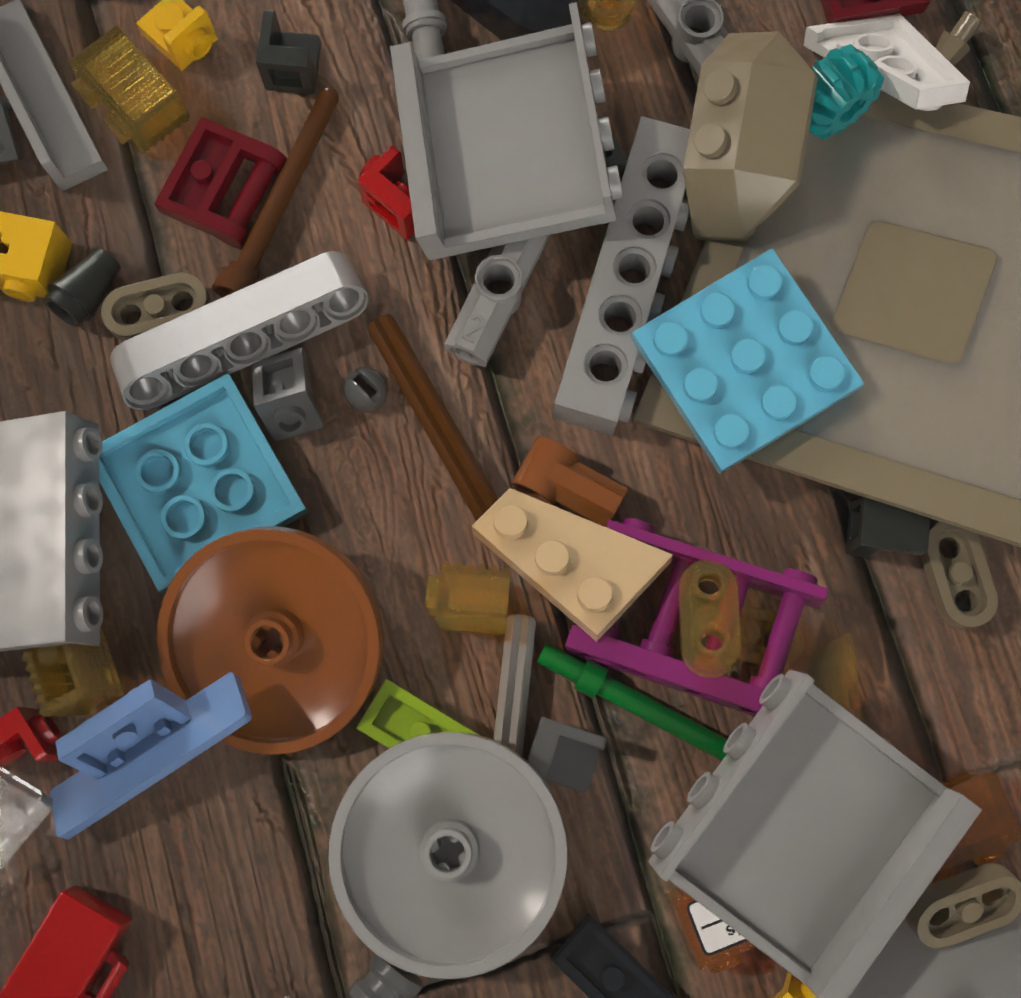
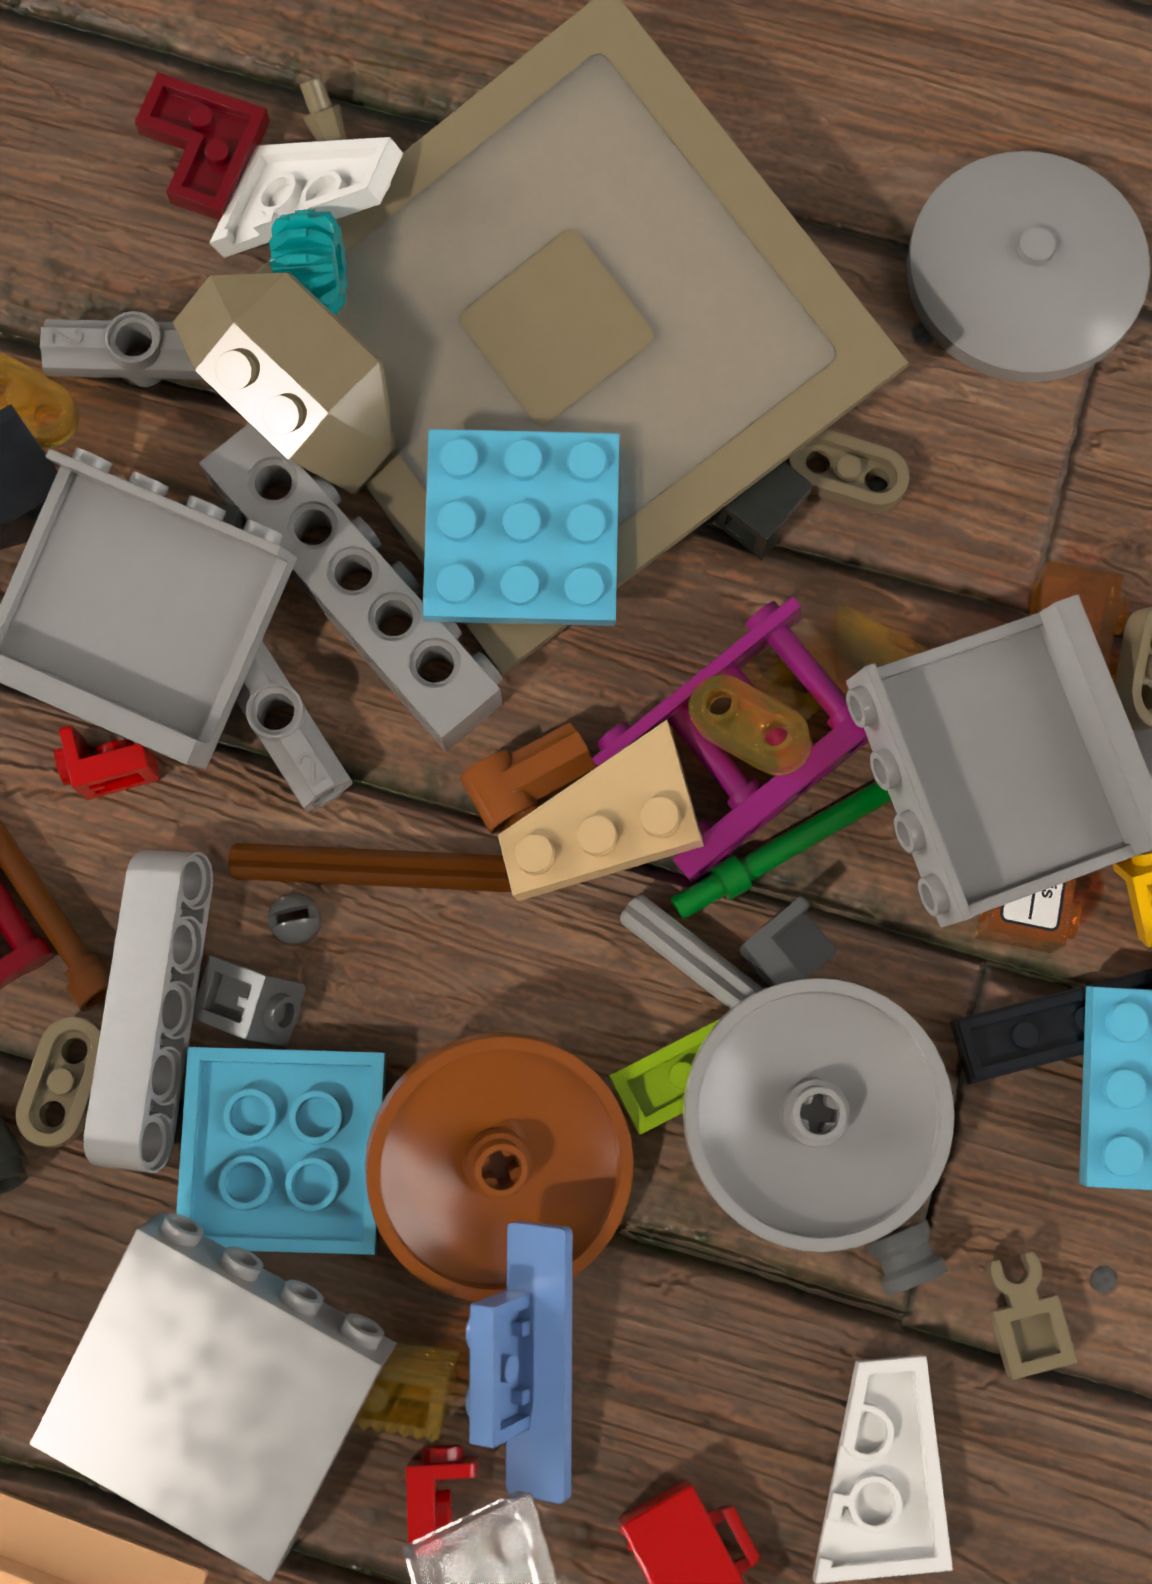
camera: 55 degrees left, 0 degrees up
(469, 598) = (587, 940): clear yellow brick -> none

